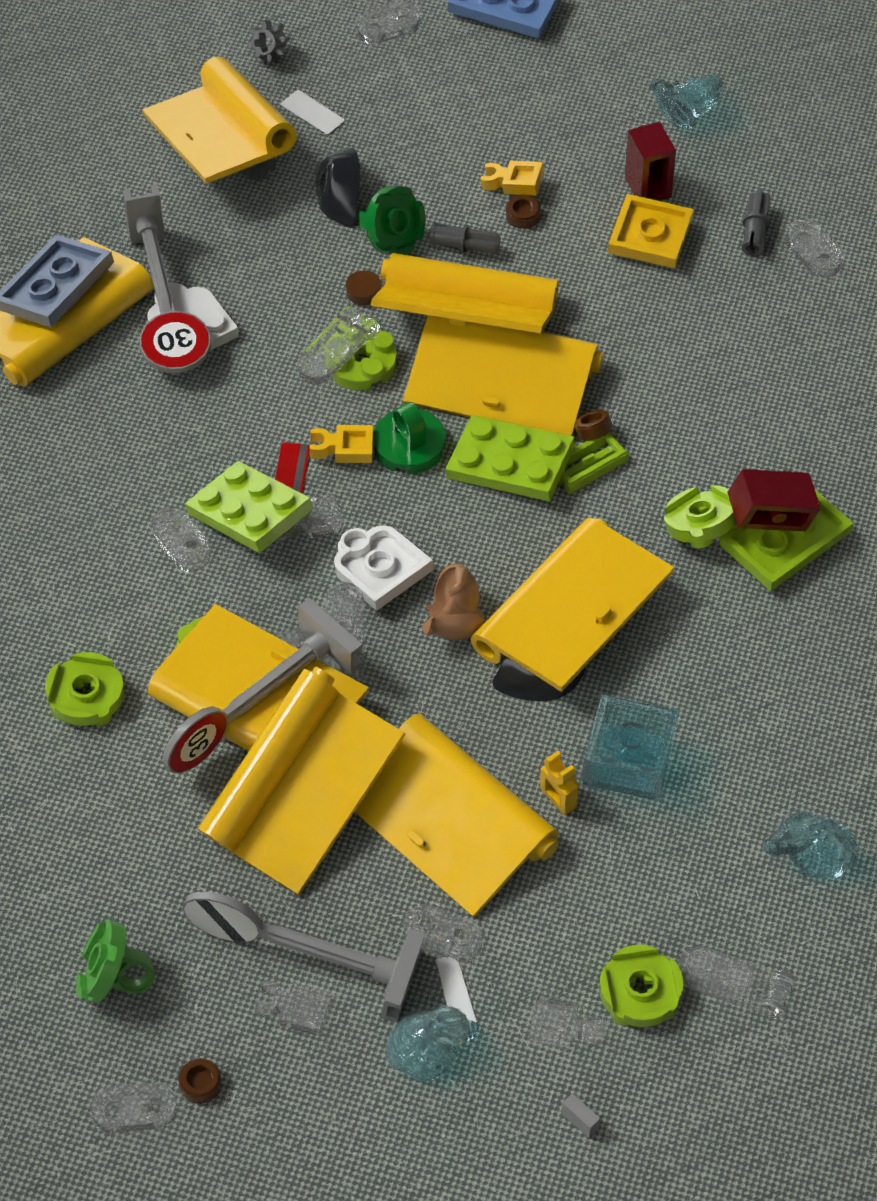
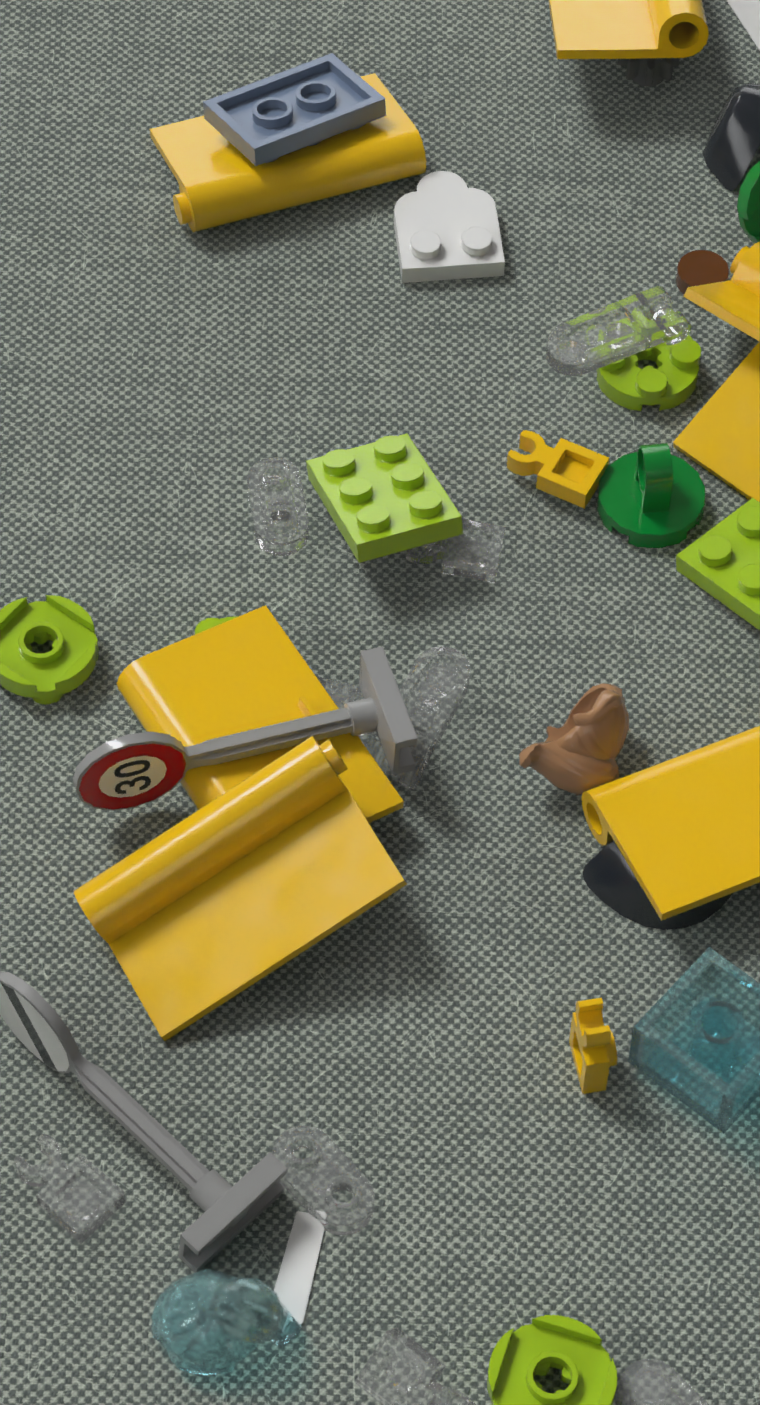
camera: 25 degrees right, 0 degrees up
(173, 338) = (412, 243): piece -> none
(292, 465) = (475, 473): red sticker -> none
(380, 563) = (517, 644): white plate -> none
(468, 818) = (435, 1022): yellow door -> none

